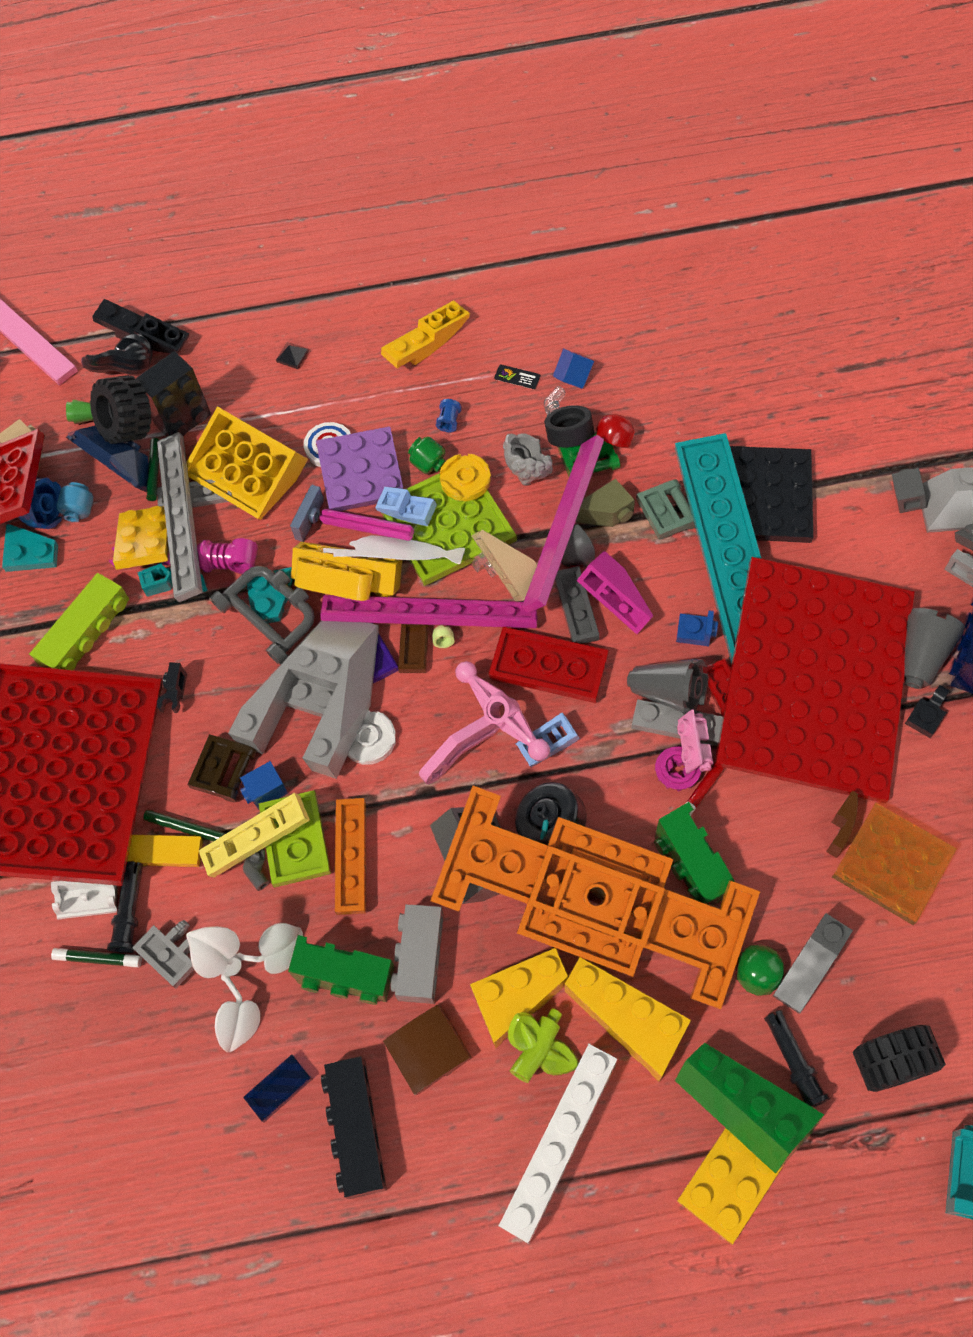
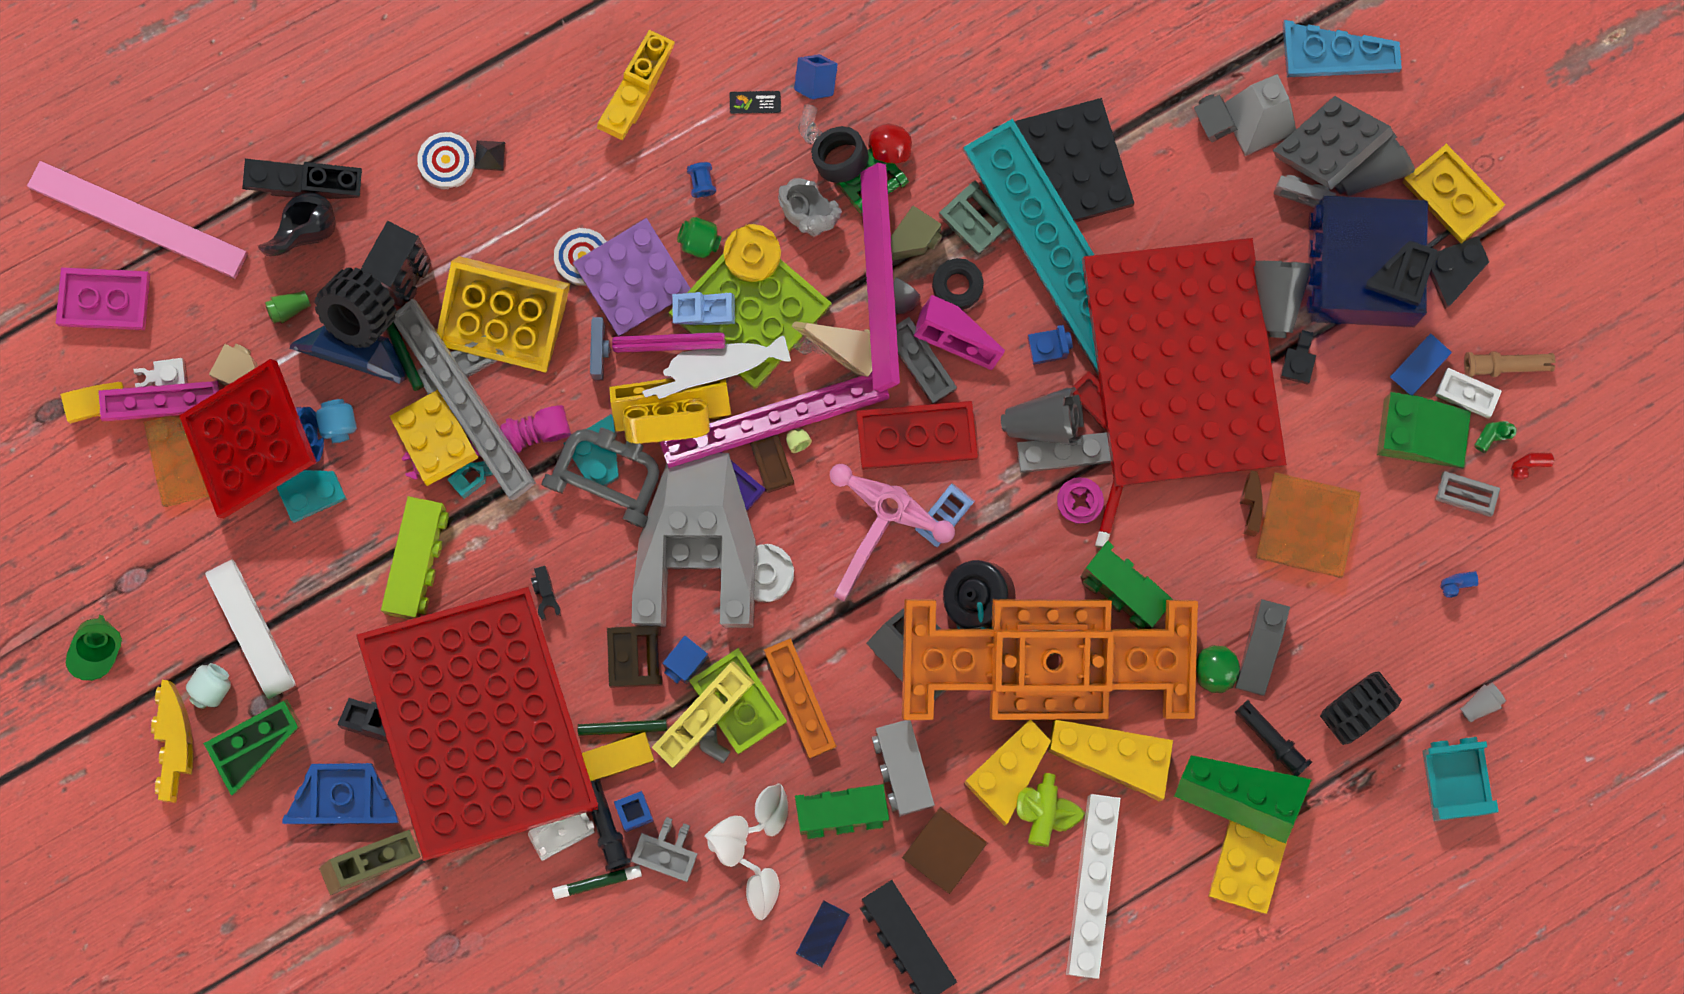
camera: 30 degrees left, 15 degrees up
(154, 901) = (634, 811): none -> blue brick
(256, 349) = (446, 160): none -> white tile
(638, 542) = (967, 269): none -> black tyre
(692, 730) = (1082, 460): bright pink hinge -> none

